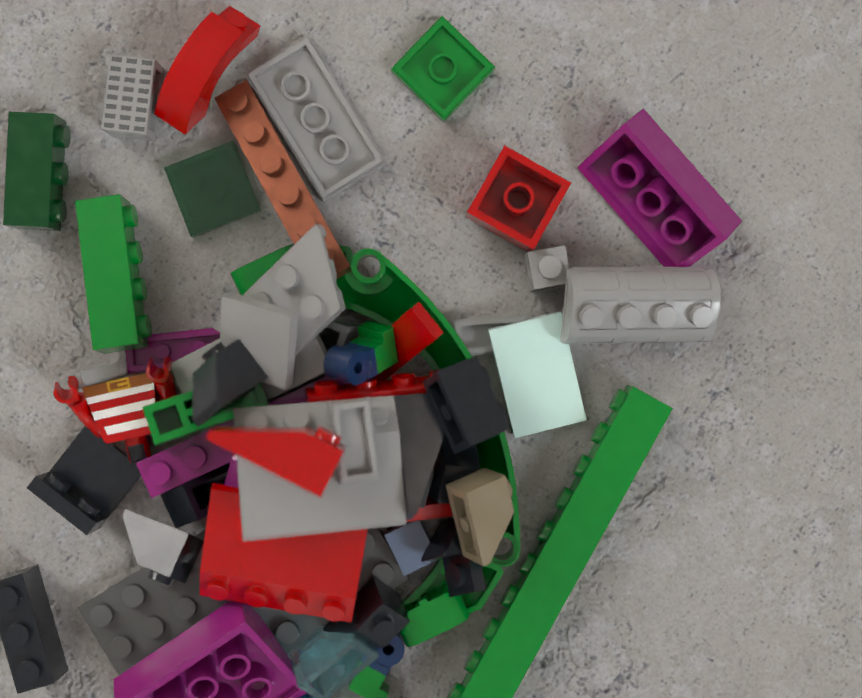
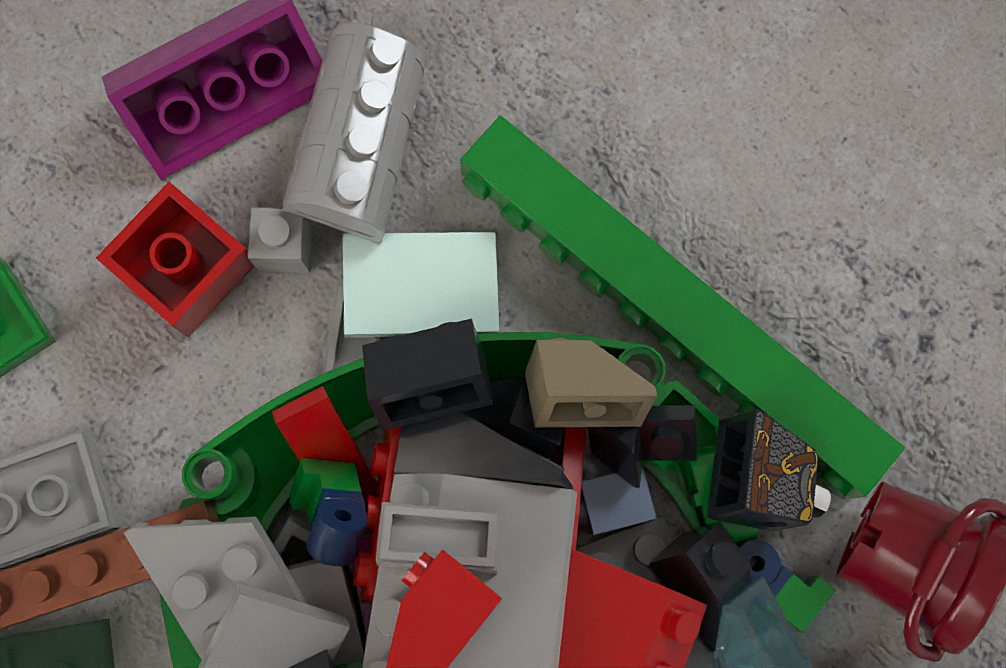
camera: 75 degrees left, 10 degrees down
(448, 645) = (764, 475): none -> torso

